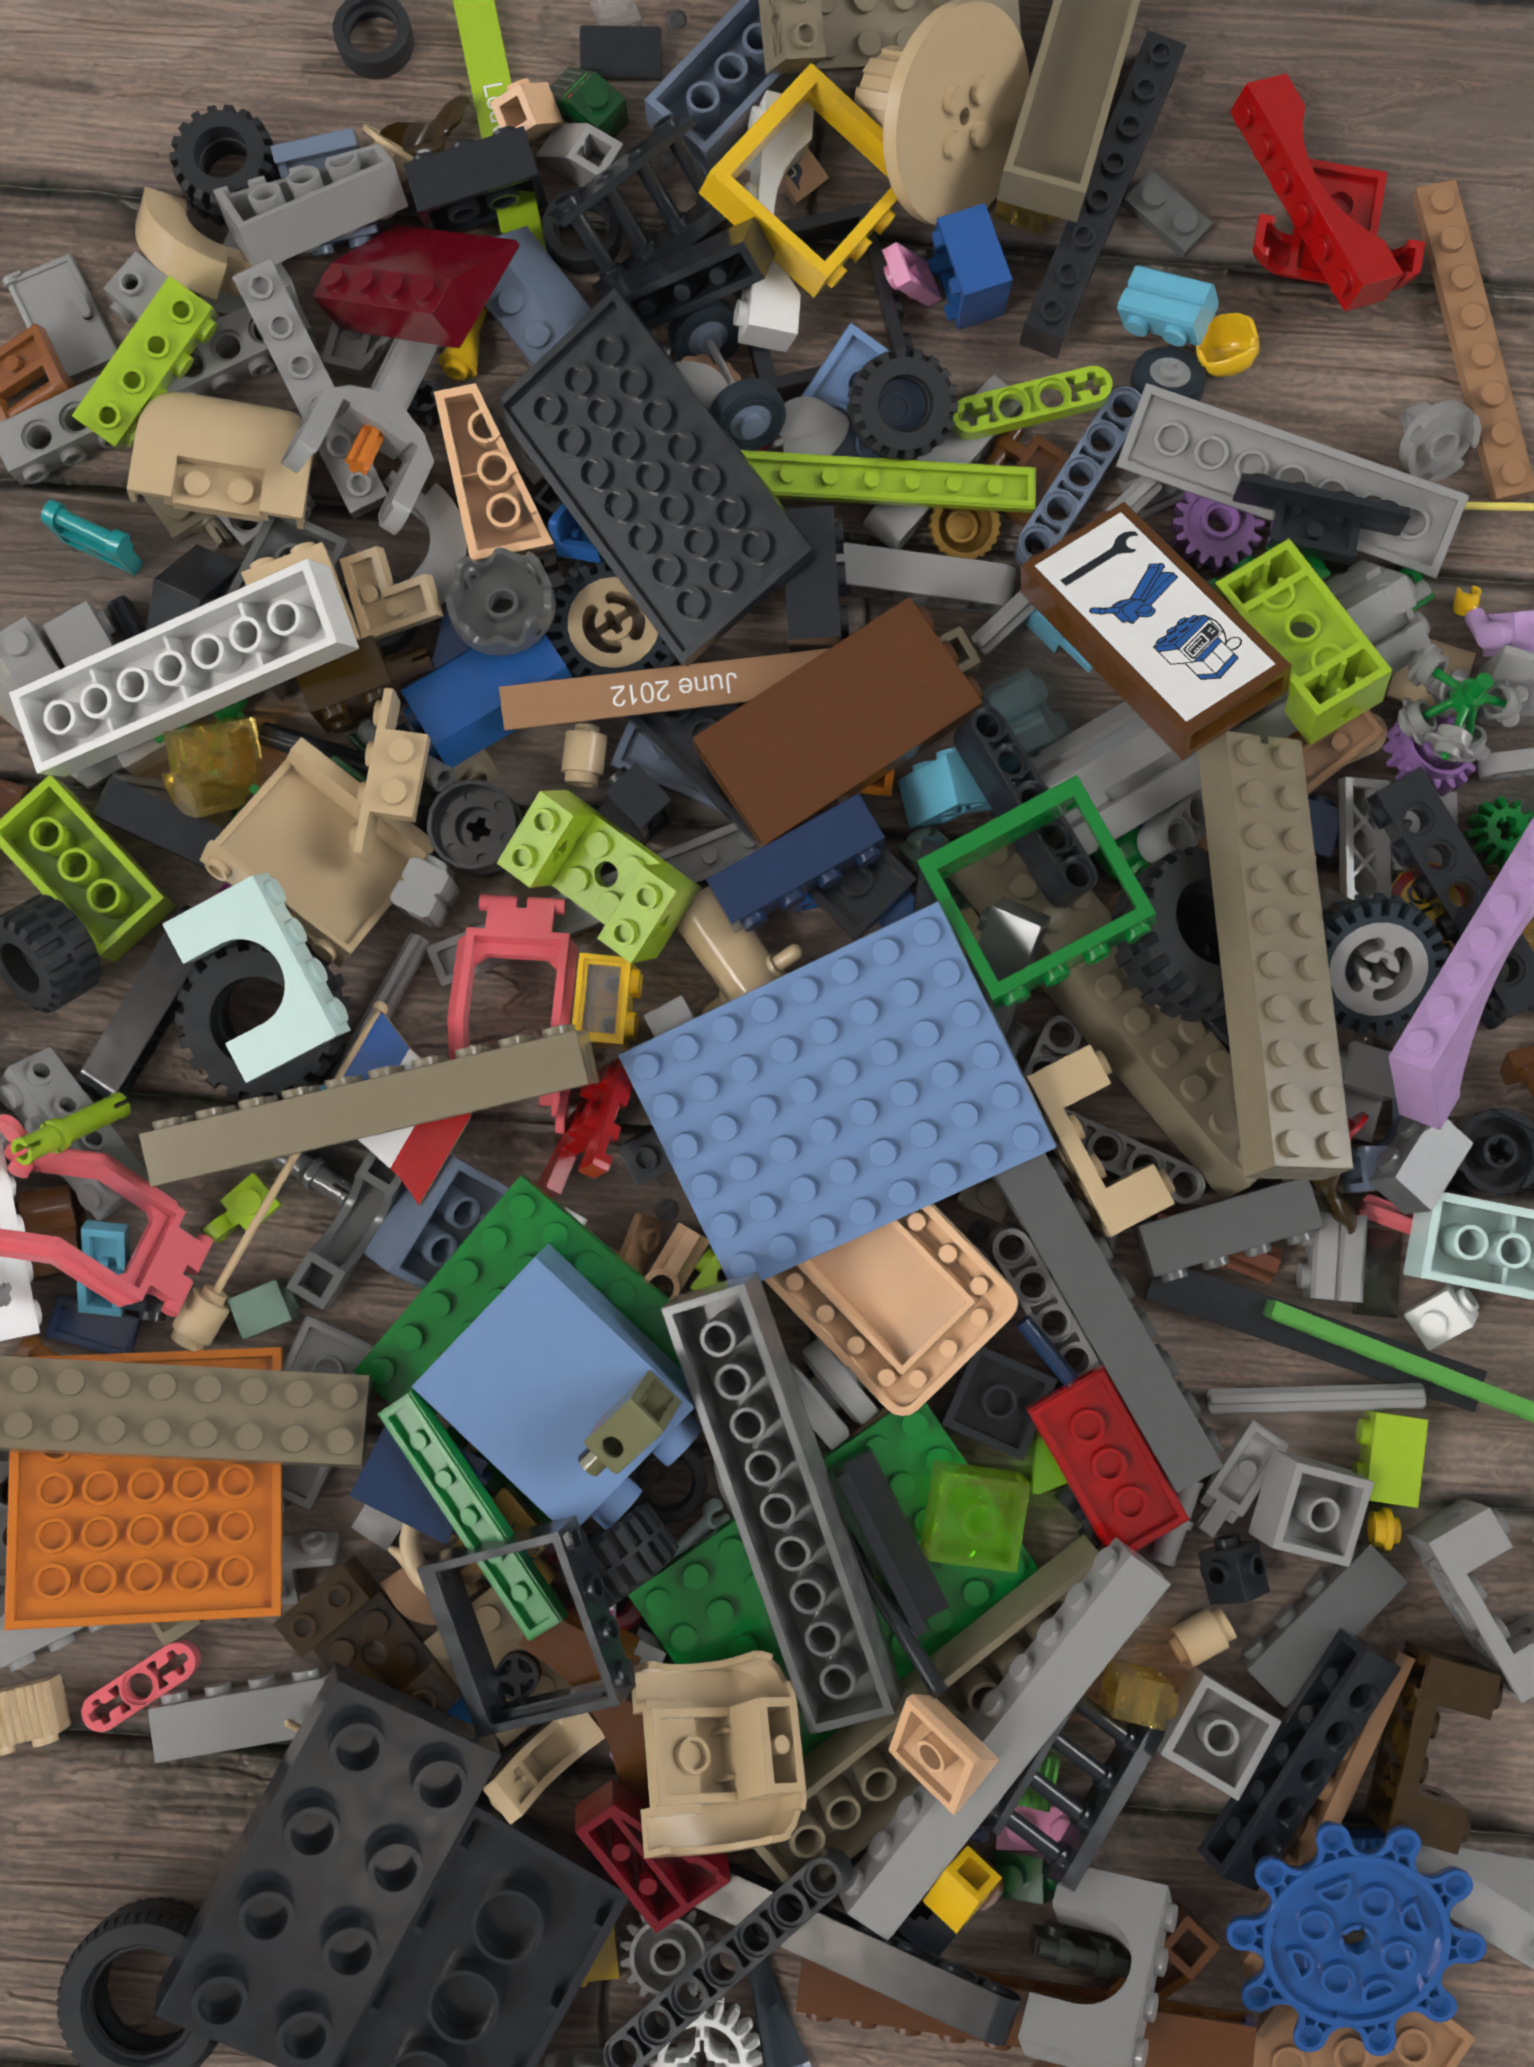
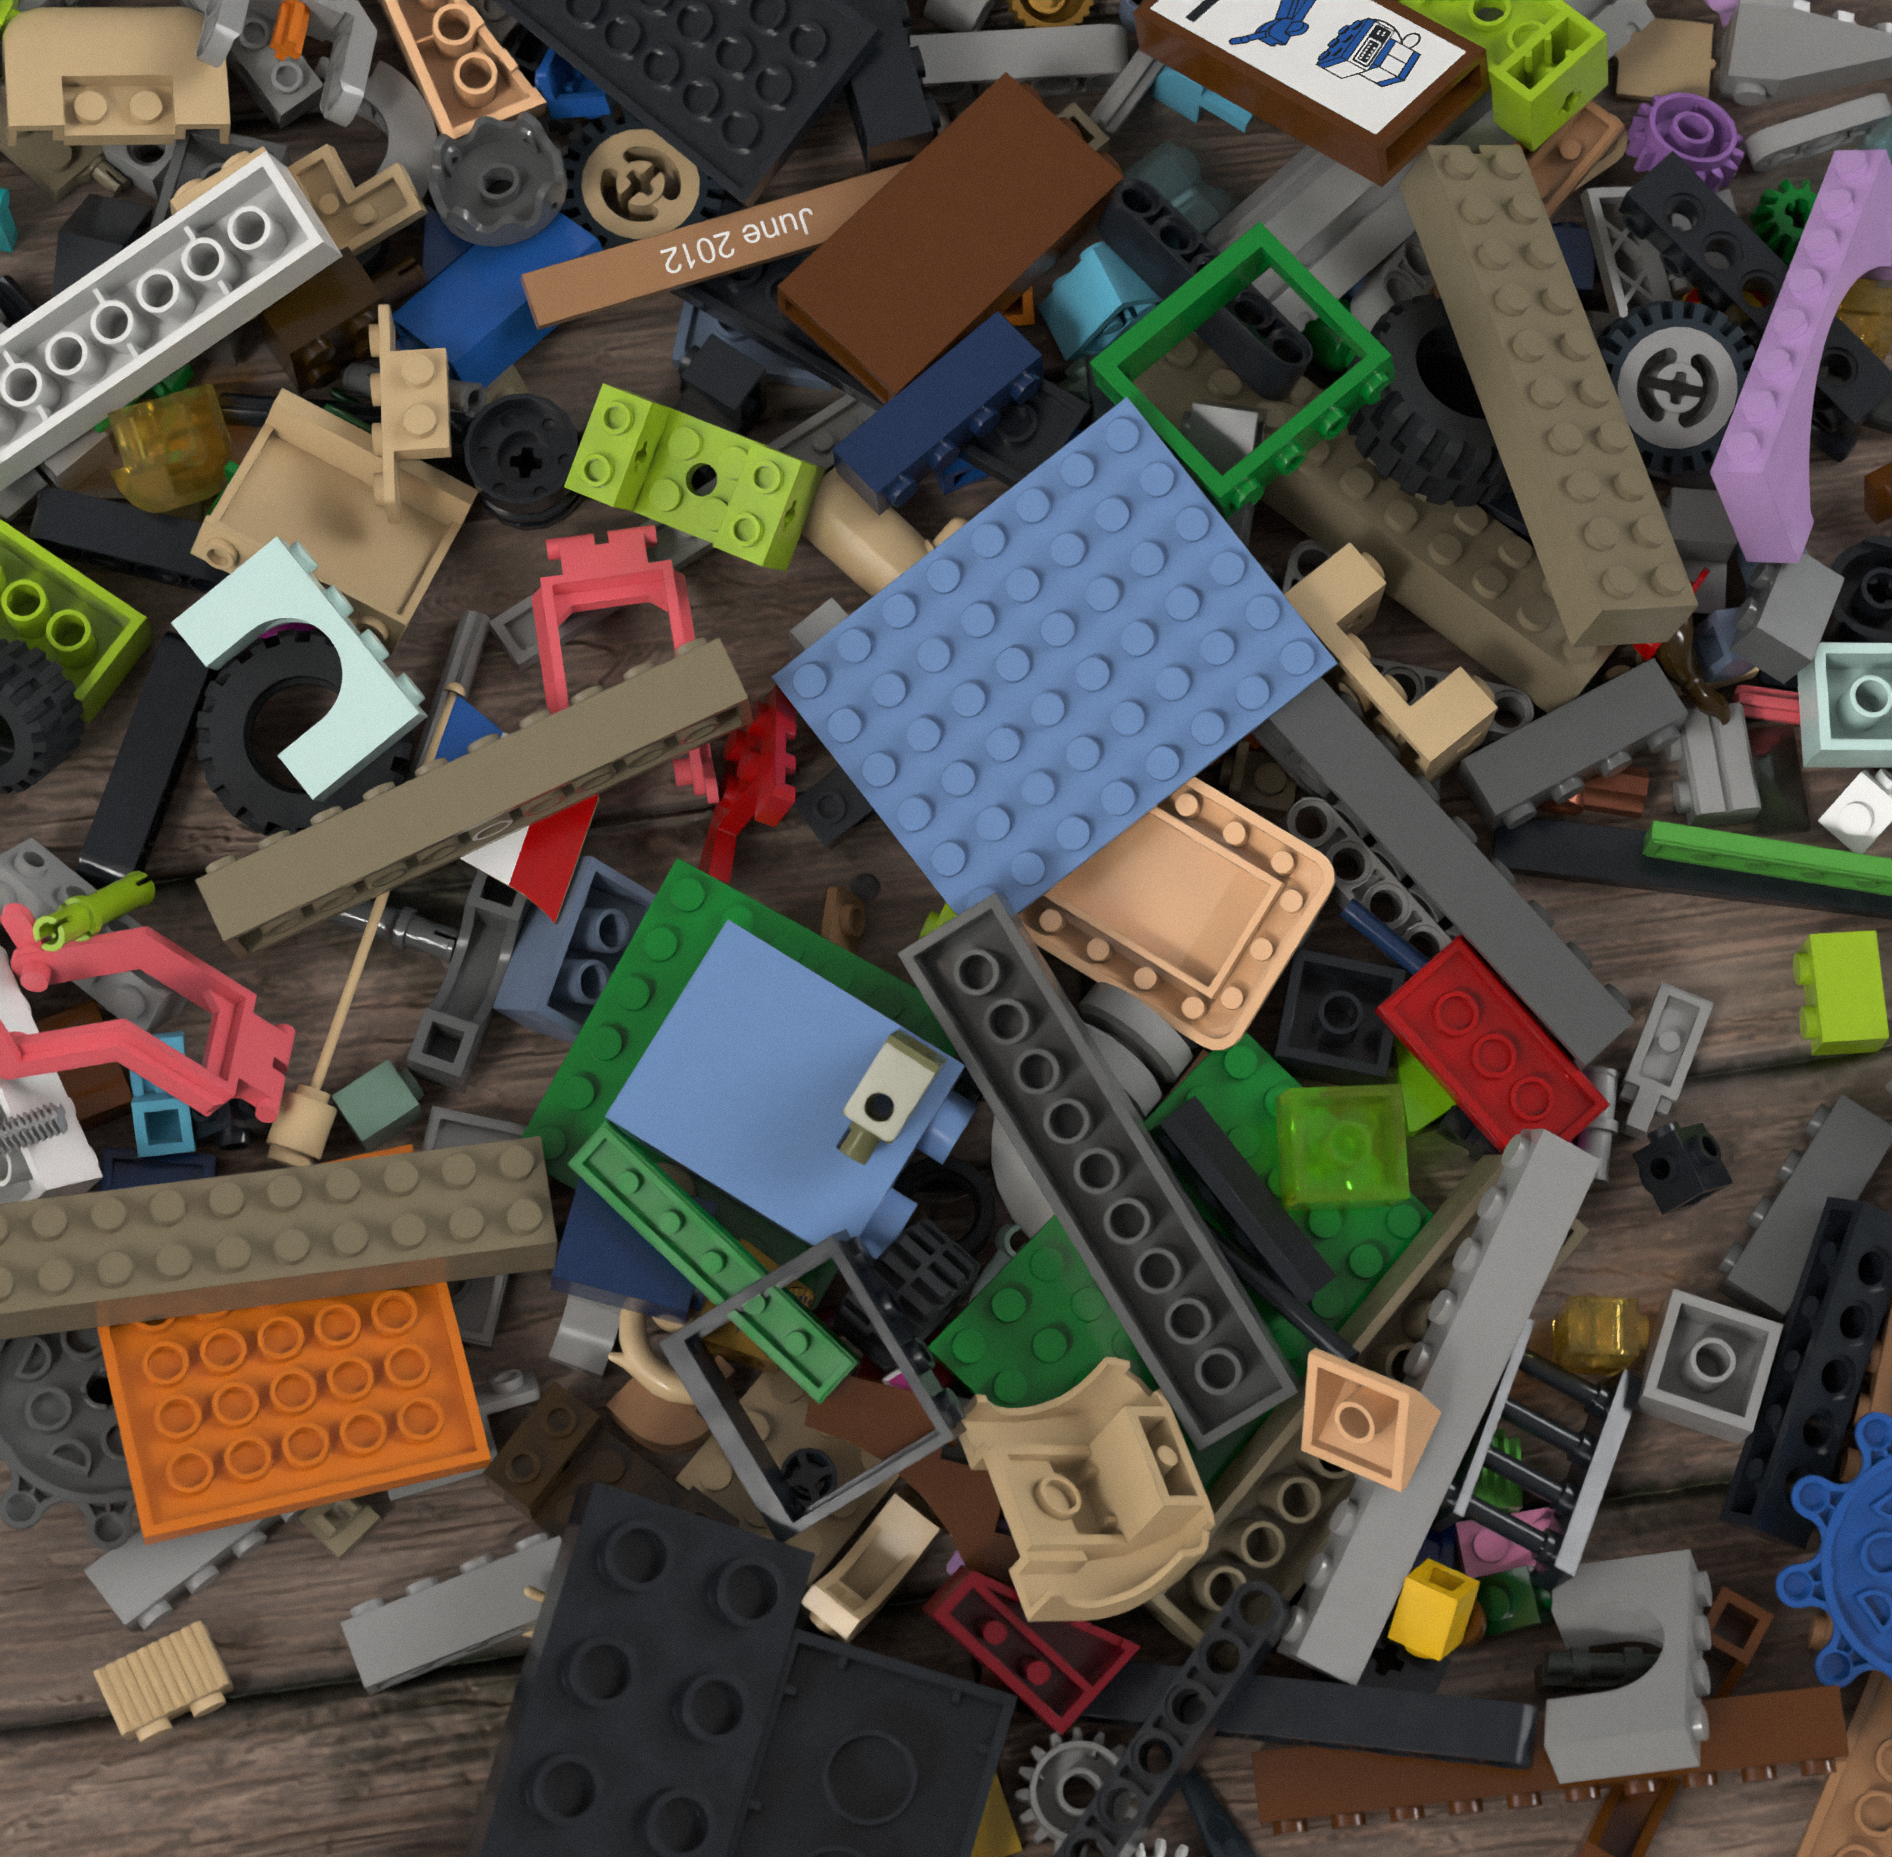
camera: 20 degrees left, 10 degrees down
(136, 1703) = (292, 1612): coral beam -> none
(242, 1207) = (320, 991): lime plate -> none
(426, 891) = (477, 550): light grey brick -> none
(584, 756) = (637, 353): tan brick -> none
(605, 1000) = (740, 612): piece -> none
(679, 1257) = (895, 928): light nougat piece -> none
(1201, 1636) = (1661, 1259): tan brick -> none
(1310, 1508) = (1757, 1064): light grey brick -> none
(1316, 1399) = (1733, 942): light grey axle -> none
(1383, 1529) = (1856, 1079): yellow plate -> none
(1458, 694) = (1693, 75): light grey plant -> none

